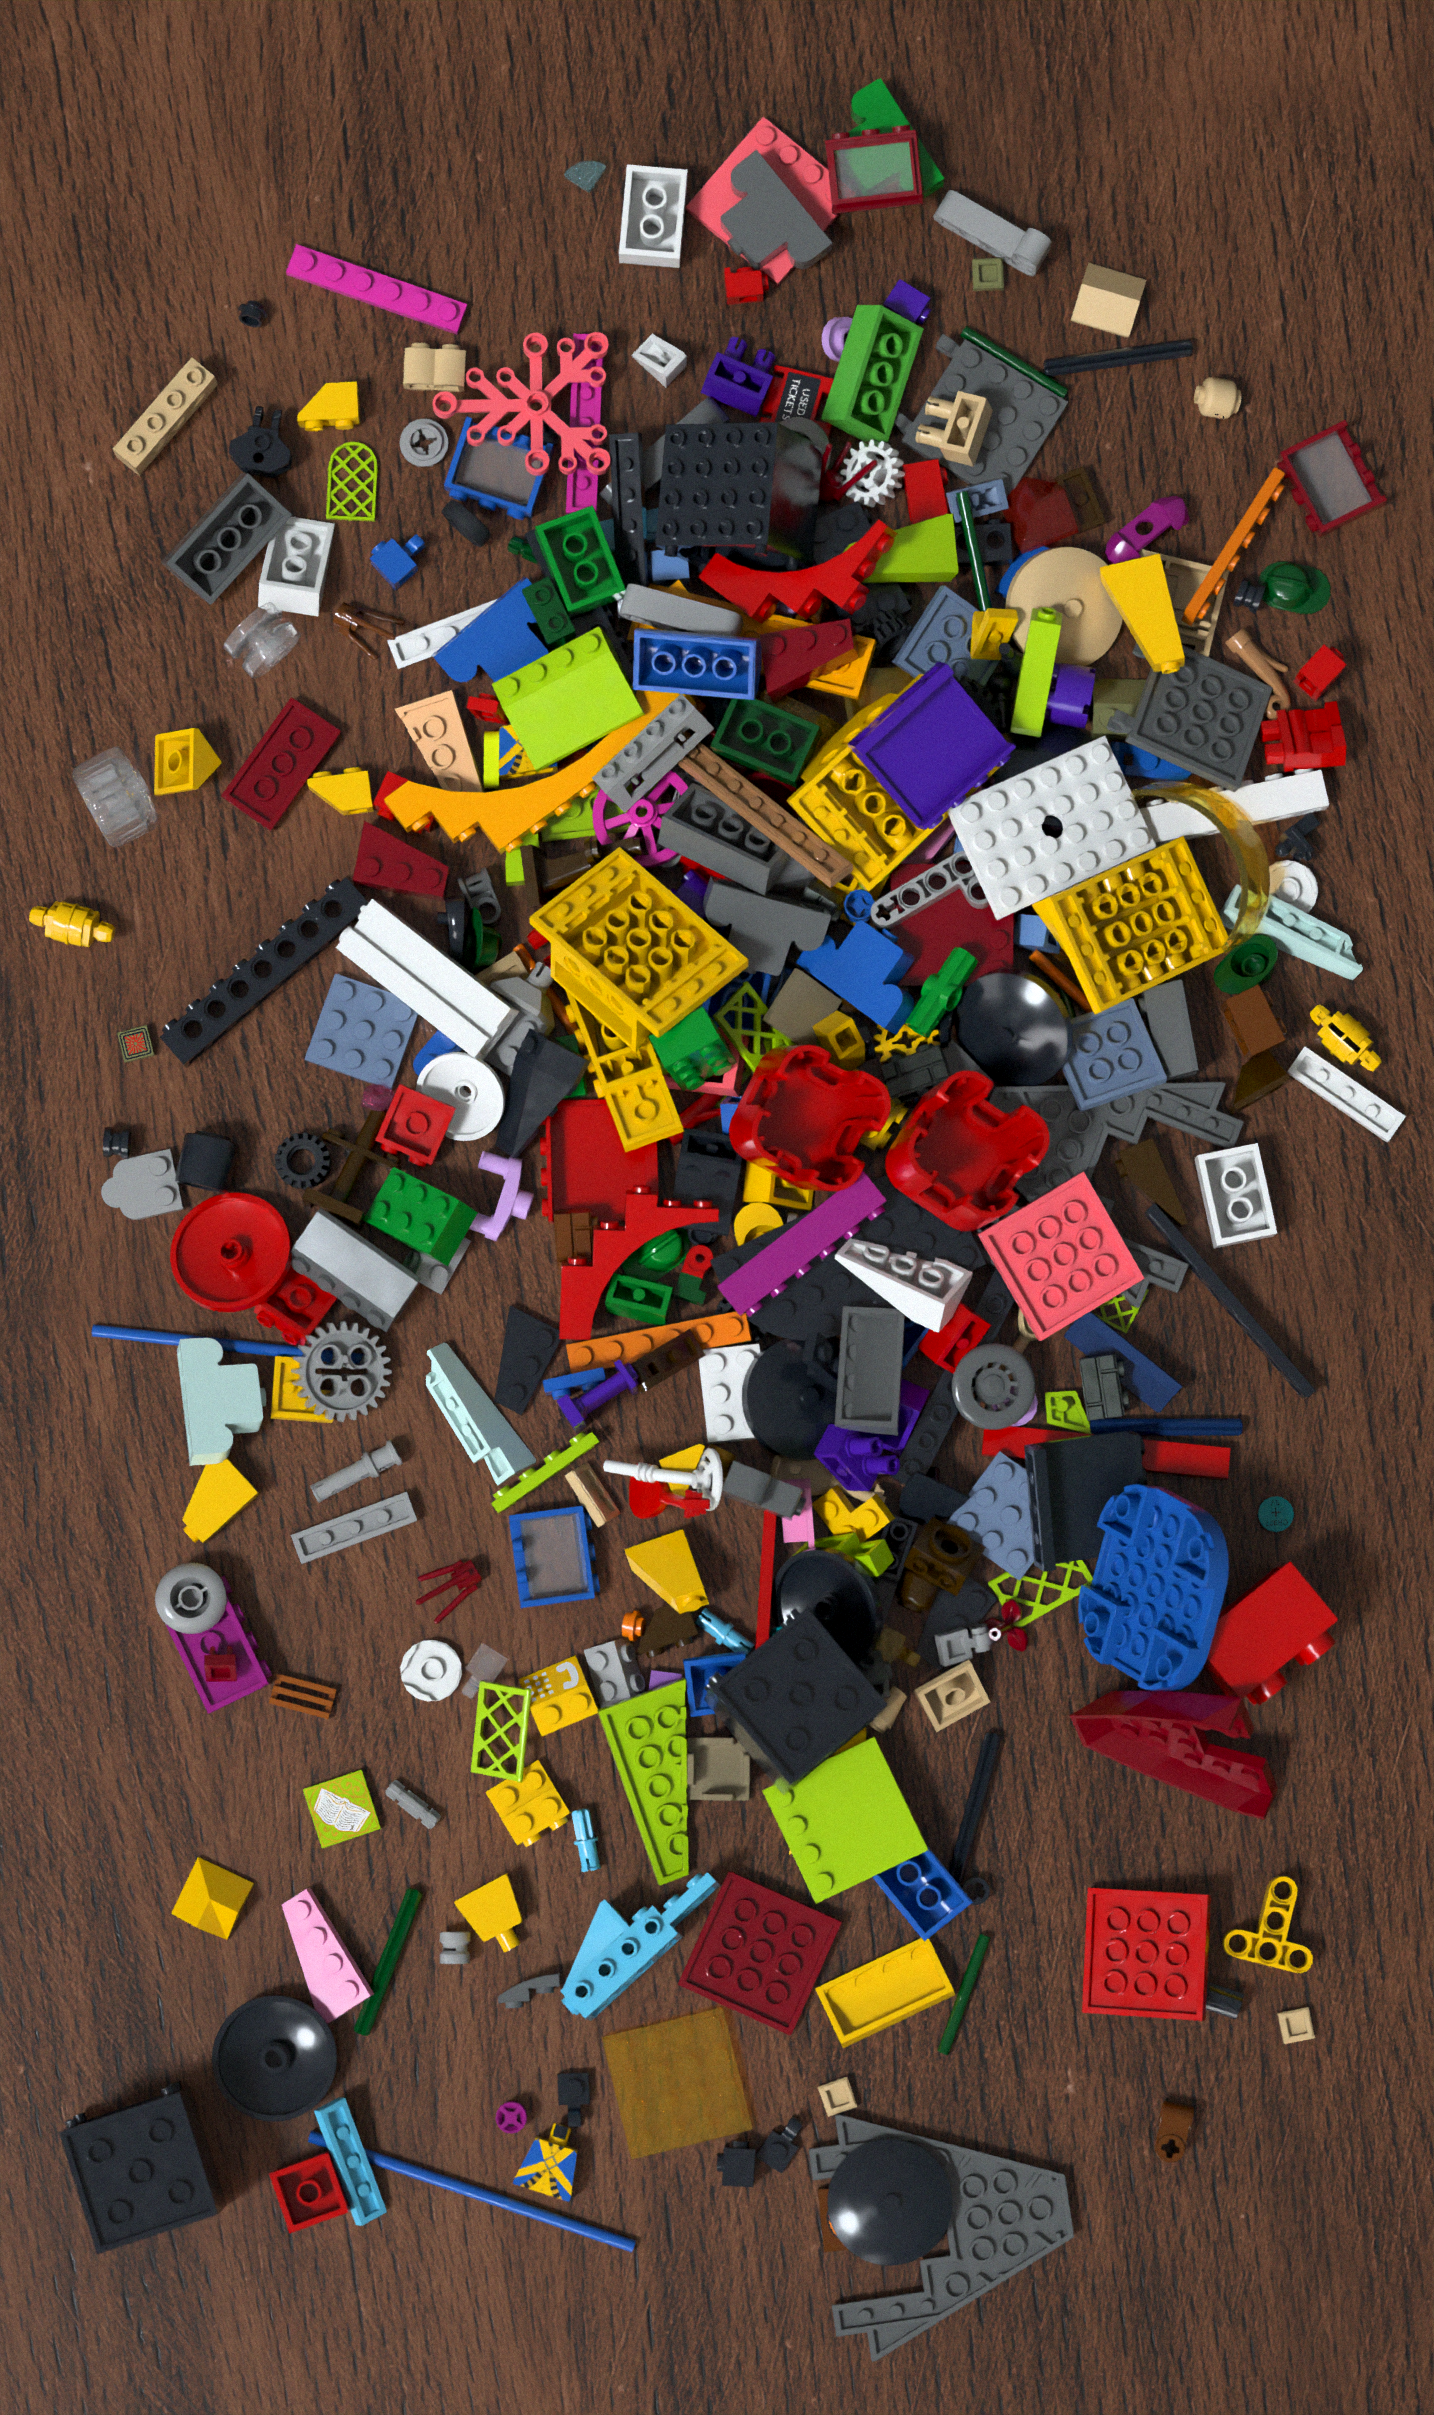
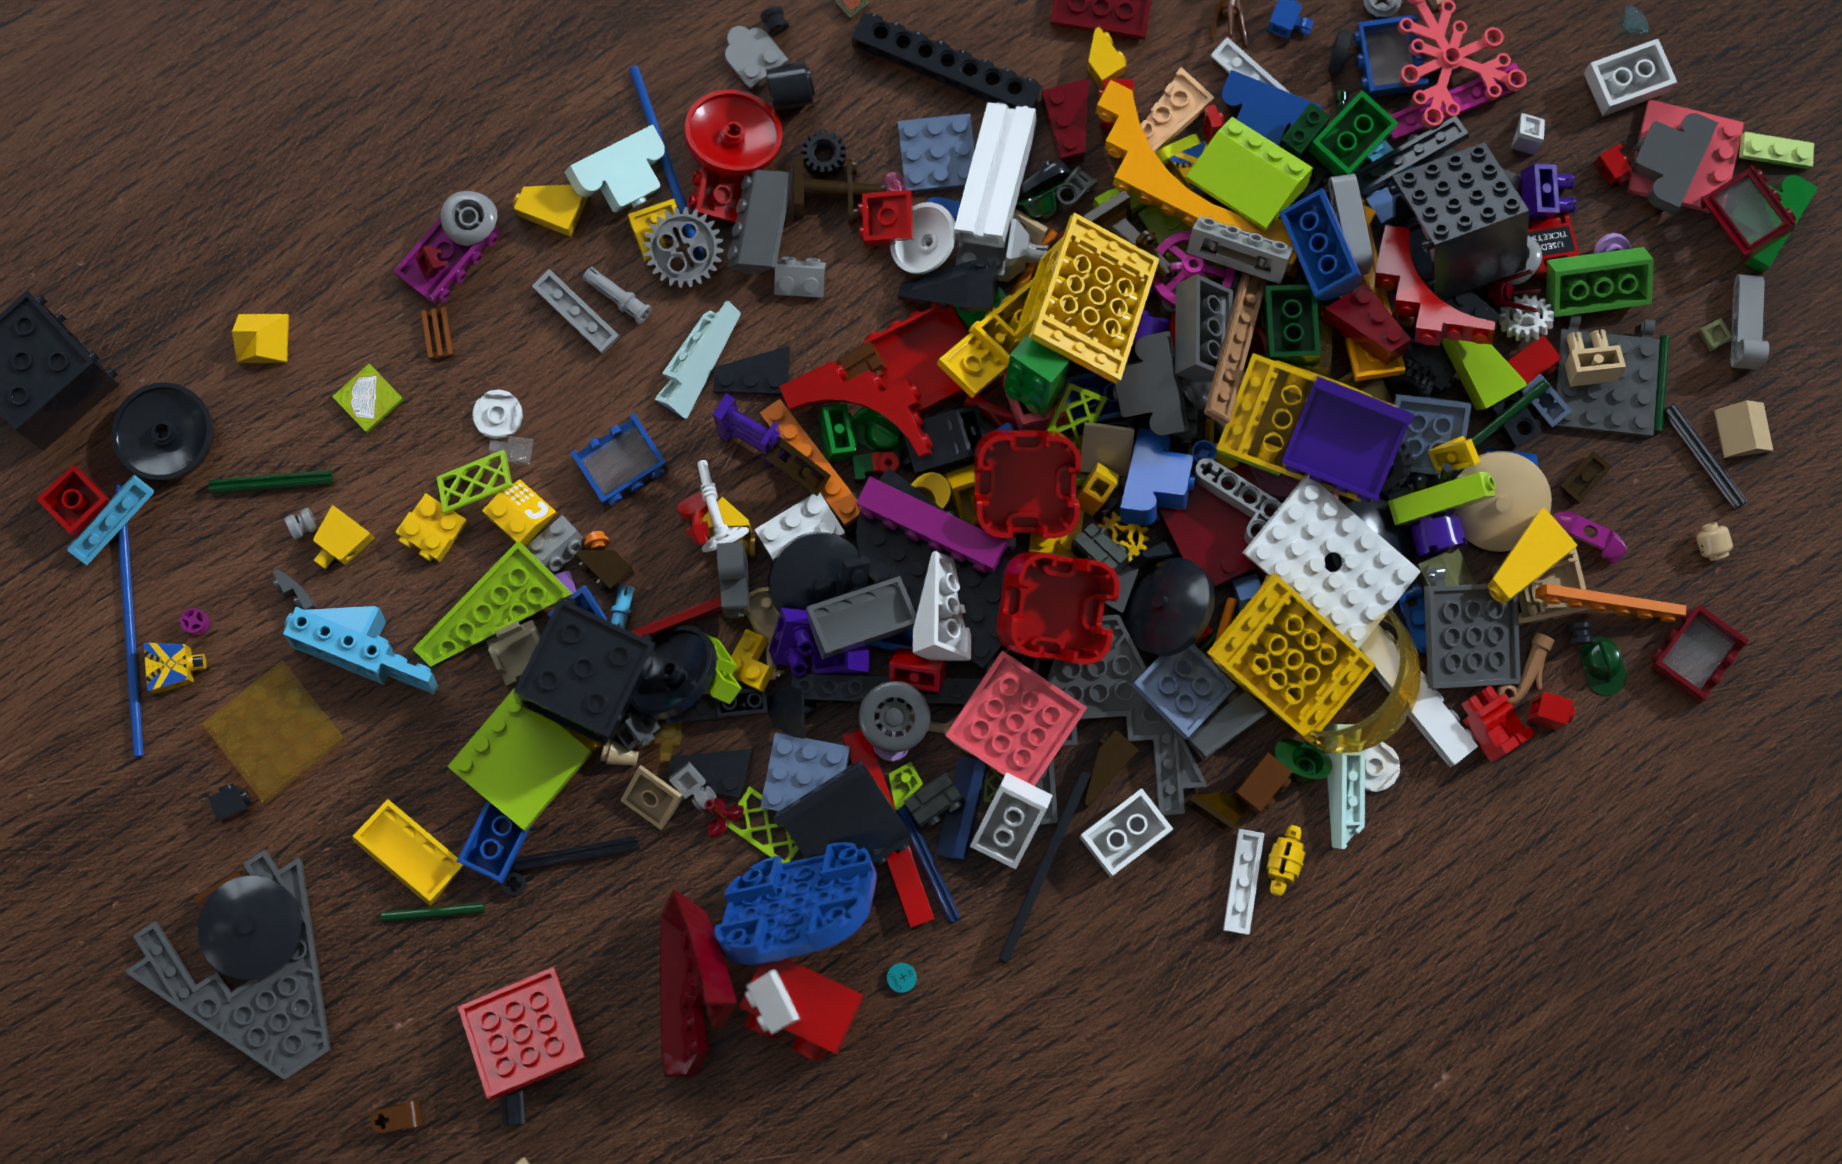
camera: 65 degrees right, 5 degrees down
(327, 1965) = (251, 436): bright pink wing -> none
(413, 1804) = (393, 446): light grey axle -> none
(420, 1216) = (821, 248): green brick -> none
(465, 1577) = (576, 405): dark red plant -> none
(512, 1199) = (866, 310): lavender connector -> none
(554, 1463) = (687, 430): lime plate -> none
(565, 1384) = (748, 408): blue plate -> none
(573, 2091) = (232, 659): black plate -> none
(585, 1840) = (422, 581): medium azure axle -> none
(592, 1494) = (678, 467): tan plate -> none
(669, 1570) = (648, 548): yellow slope -> none
(759, 1952) = (396, 746): dark red plate -> none
(779, 2148) = (257, 828): black plate -> none
(801, 1526) = (728, 628): bright pink panel -> none
(812, 97) = (1776, 150): none -> yellowish green plate
(837, 2096) = (315, 853): tan tile -> none
(908, 303) = (1664, 286): dark purple brick -> none
(916, 1592) = (718, 735): dark brown head -> none
(941, 992) = (1169, 539): green piece -> none
(944, 1555) = (751, 741): dark brown brick -> none
(1038, 514) = (1559, 450): clear red slope -> none
(1166, 1313) = (1011, 820): none -> white brick
(1257, 1659) = (773, 1003): none -> white slope
(1276, 1936) = (579, 1123): yellow beam -> none
(1294, 842) = (1417, 751): black piece -> none

